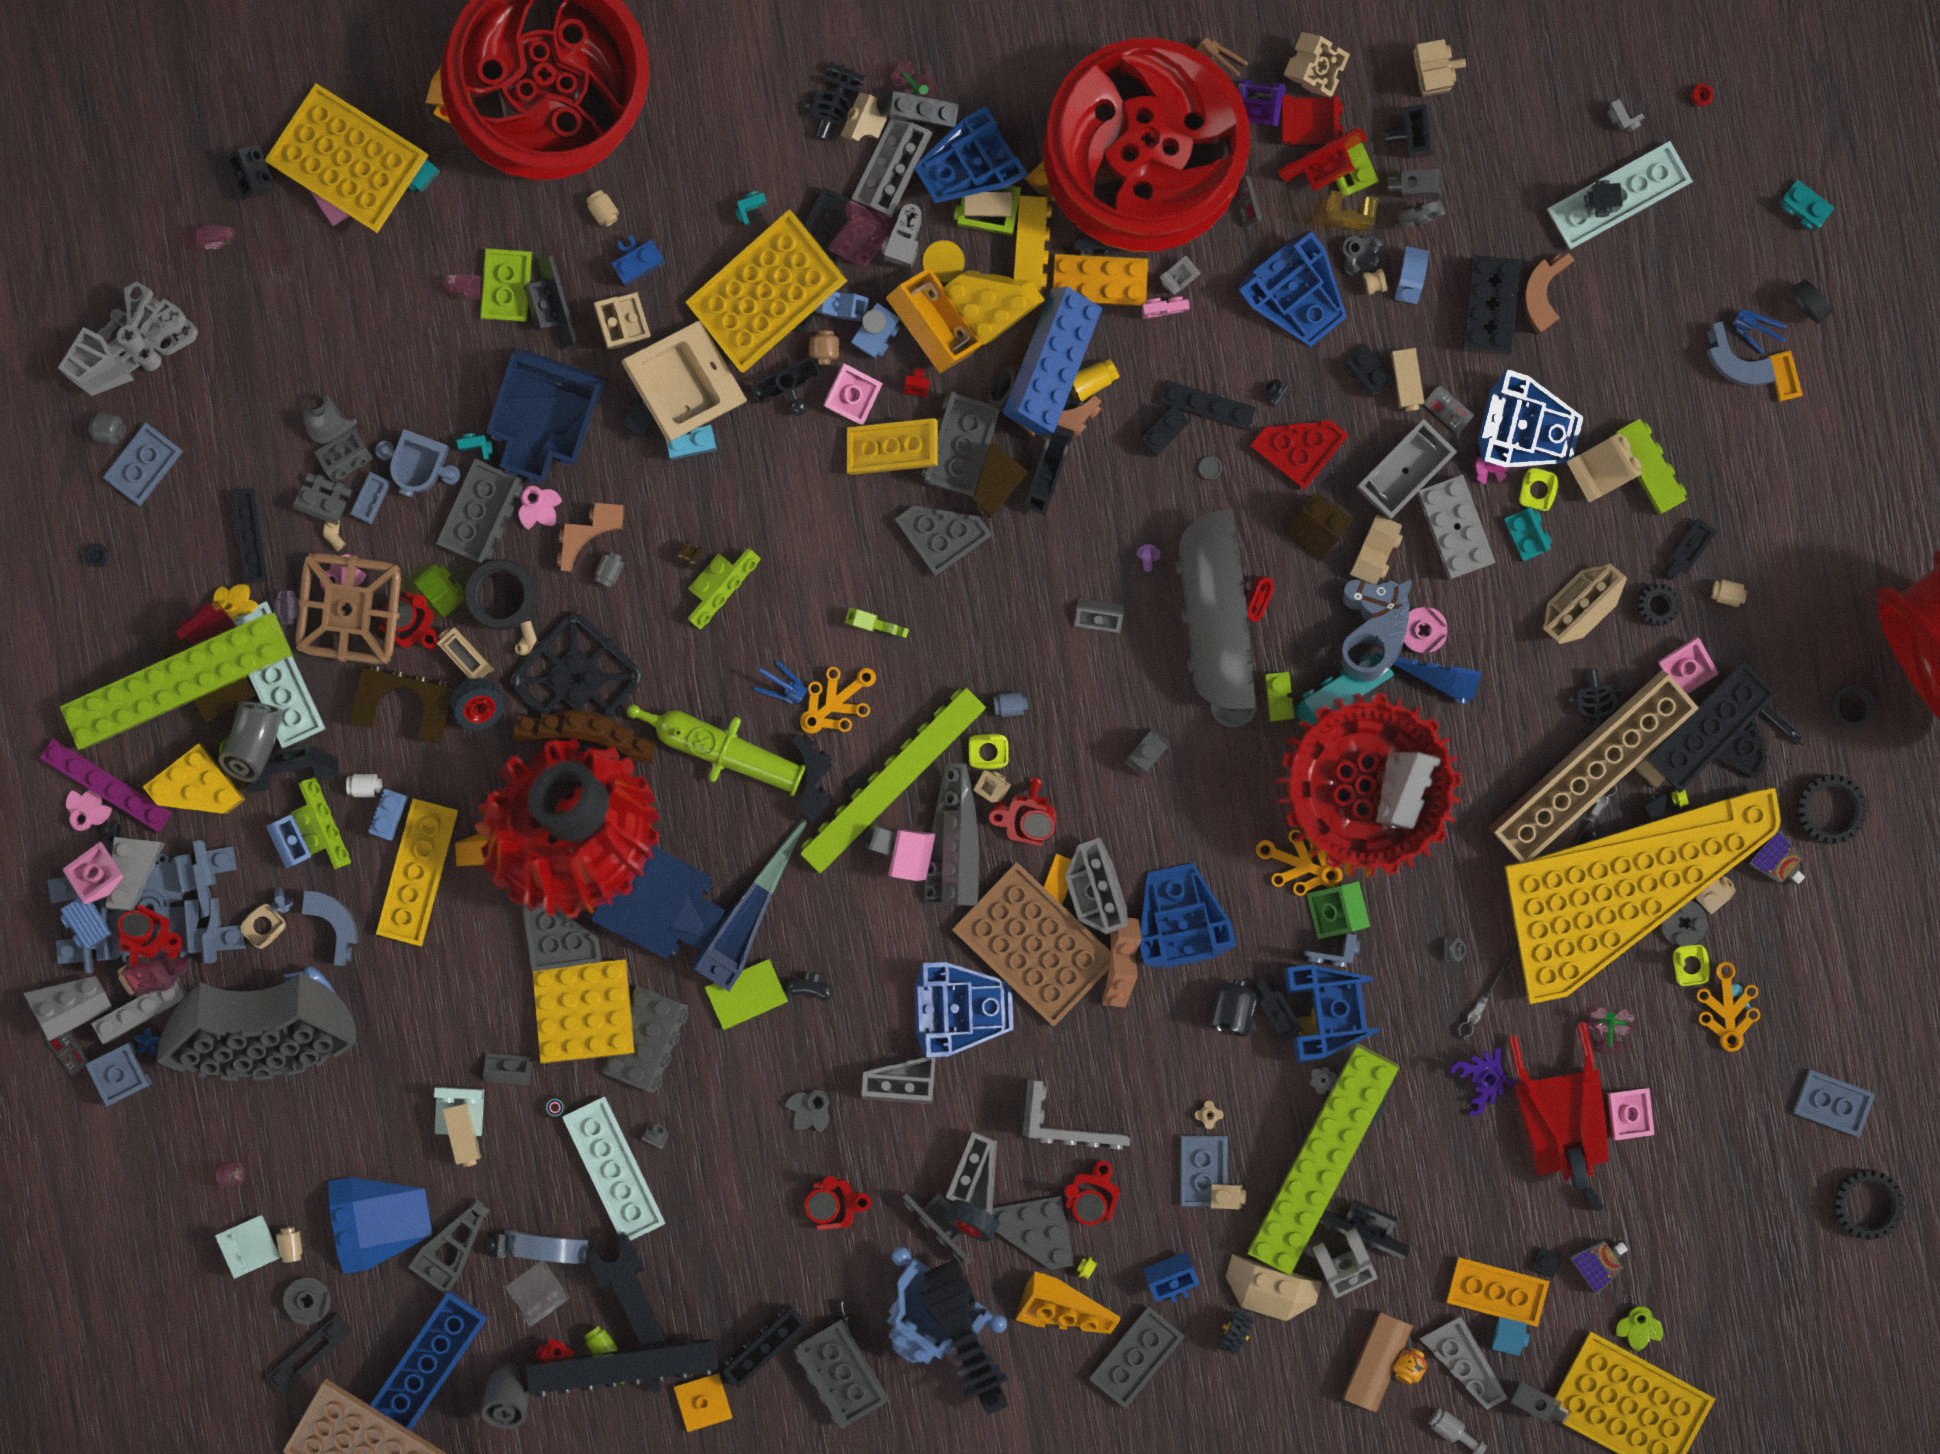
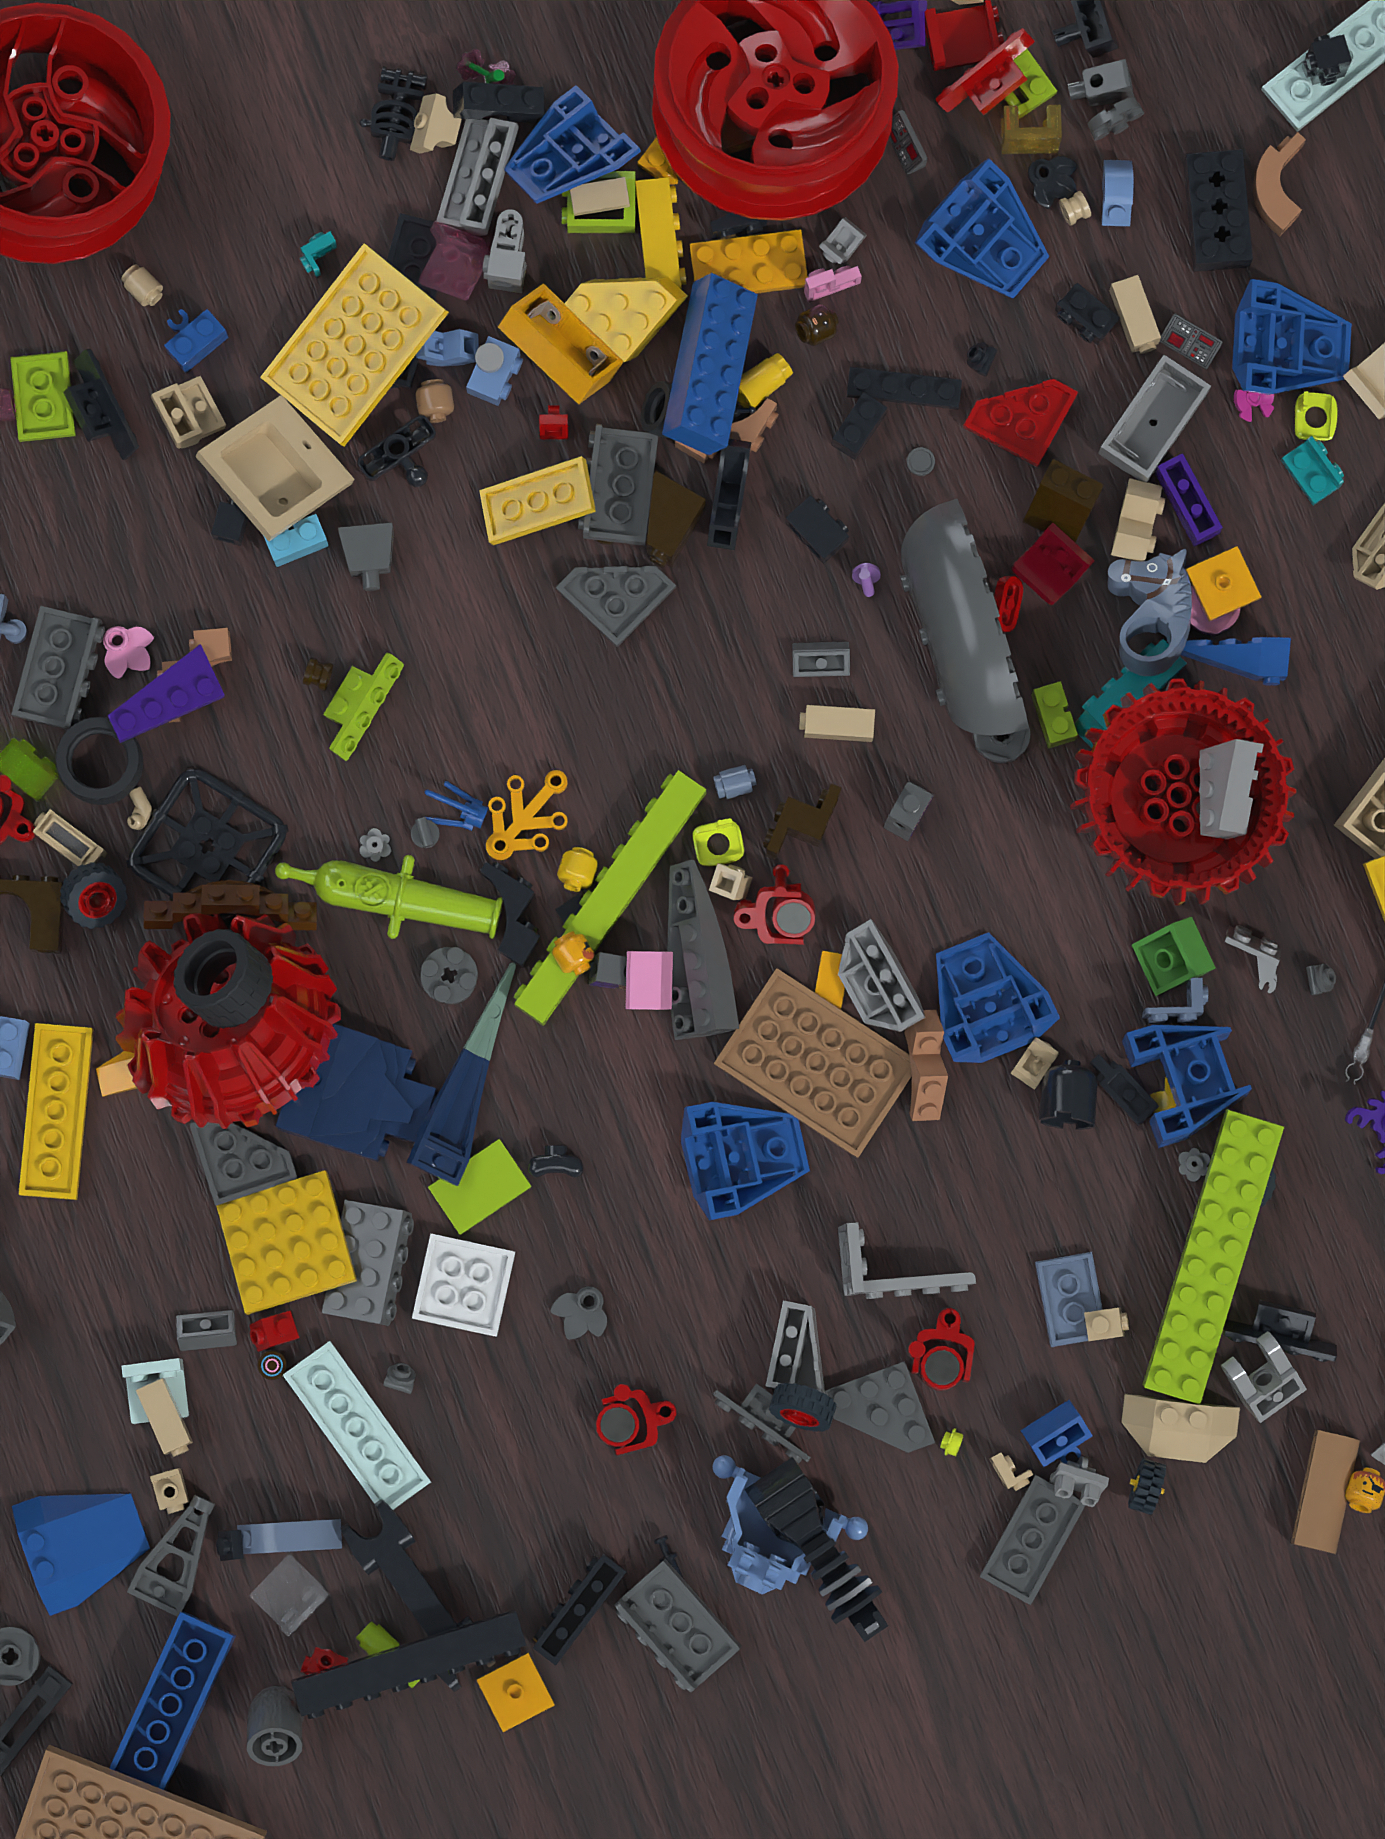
camera: 10 degrees left, 5 degrees down
(462, 1185) = (174, 1479): none -> tan brick
(470, 441) = (34, 587): teal bracket -> none
(543, 413) = (112, 537): dark blue panel -> none
(561, 1080) = (273, 1331): none -> red bracket
(570, 552) = (171, 695): none -> dark purple wing
(609, 569) = (225, 710): dark grey brick -> none
(717, 706) = (382, 848): none -> light grey plant
(719, 1071) = (463, 1285): none -> white plate
(740, 813) = (434, 968): none -> dark grey plate
(747, 462) = (368, 551): none -> dark grey torso
(753, 700) = (425, 833): none -> dark grey plate
(852, 394) = (478, 450): bright pink slope -> none
(854, 822) = (573, 953): none -> light orange head
(869, 622) = (547, 715): lime piece -> none
(870, 752) = (577, 869): none -> yellow head
(901, 1082) = (686, 1258): light grey wedge -> none
(944, 260) = (560, 273): yellow sticker -> none
(1056, 1303) = (923, 1492): light orange wedge -> none
(1058, 747) = (801, 821): none -> dark brown bracket
(1102, 671) = (838, 723): none -> tan brick
(1115, 509) = (817, 528): none -> black brick
(1125, 1296) = (1005, 1469): none -> tan bracket
(1146, 341) = (816, 325): none -> dark brown head
(1184, 1315) = (1078, 1478): none -> light grey hips
(1209, 1108) = (1064, 1222): tan plate -> none
(1210, 976) = (1035, 1062): none -> tan bracket
(1300, 574) = (1052, 564): none -> dark red bracket
(1302, 864) = (1120, 910): light orange plant -> none
(1411, 918) = (1265, 949): none -> light grey plate
(1421, 540) = (1188, 500): none -> dark purple brick
(1436, 614) = (1223, 583): none -> light orange plate
(1460, 549) = (1237, 501): light grey piece -> none

